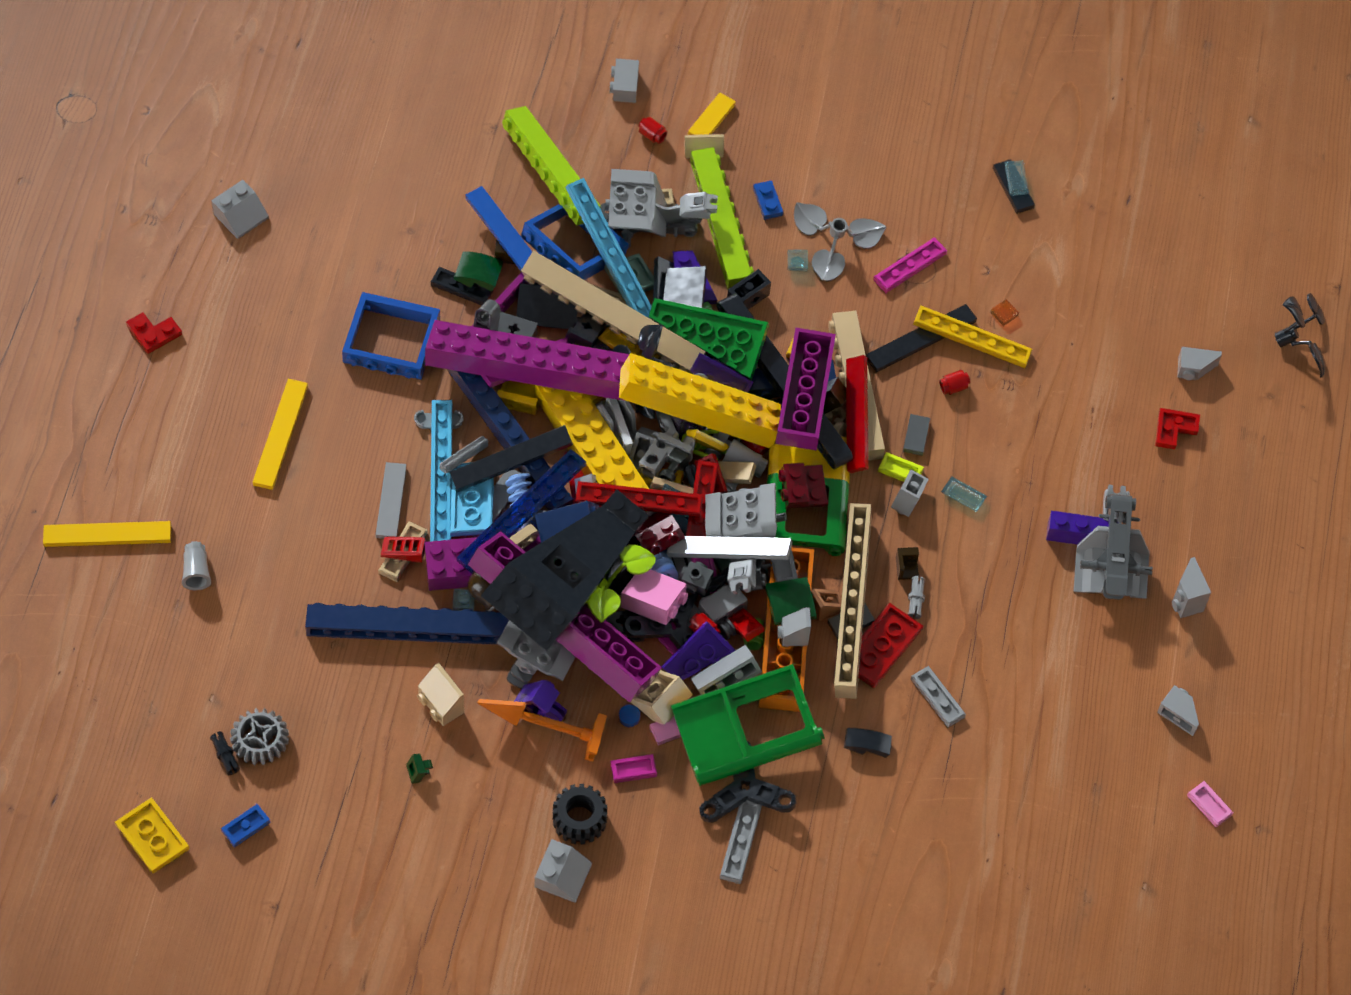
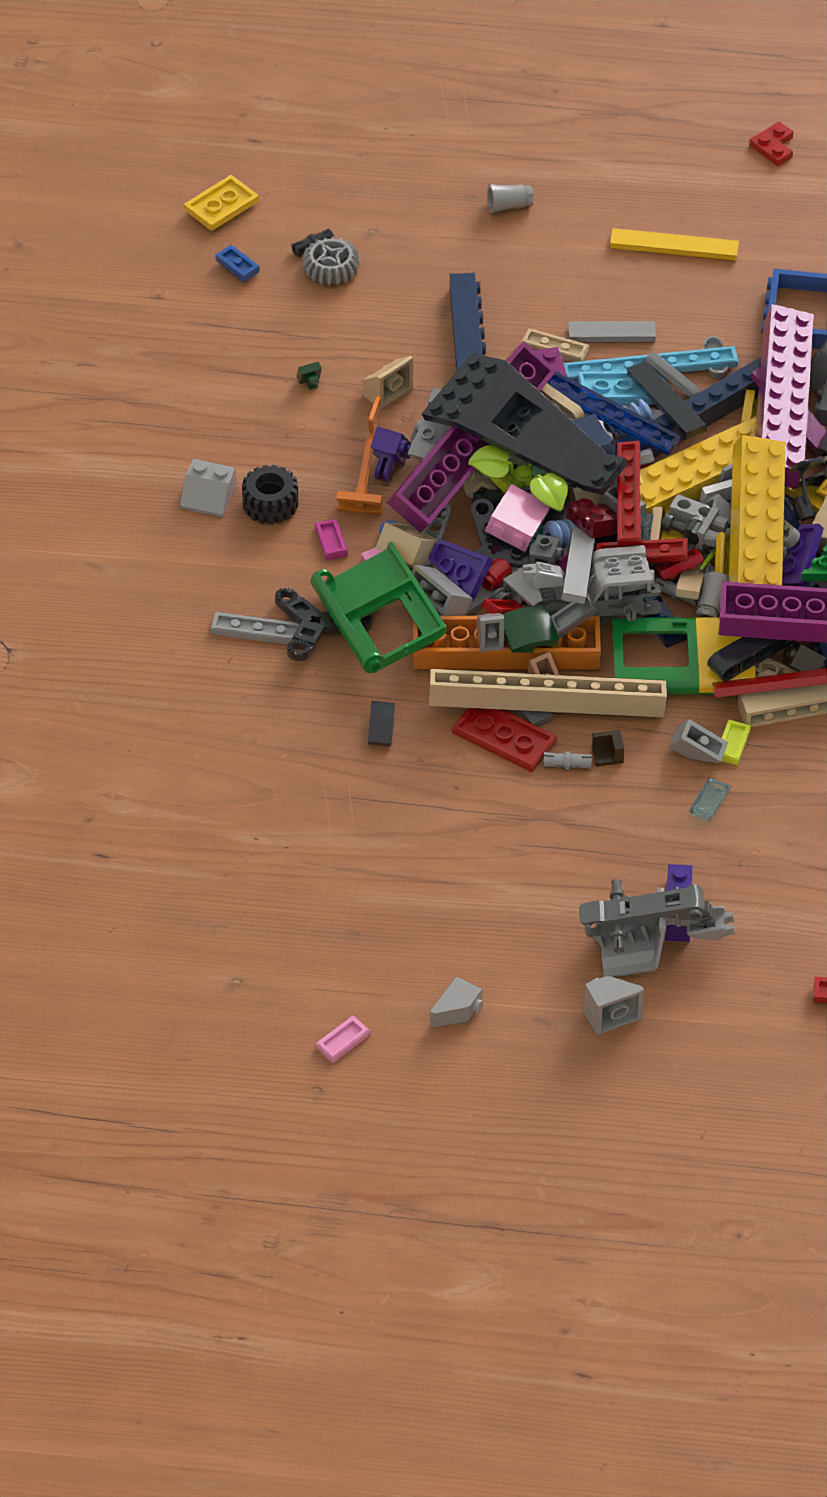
camera: 90 degrees right, 10 degrees down
(107, 533) = (537, 139): yellow tile -> none
(410, 555) = (553, 337): red slope -> none
(802, 485) = (679, 637): dark red plate -> none
(916, 434) = (781, 753): dark grey tile -> none
(938, 696) = (447, 786): light grey tile -> none

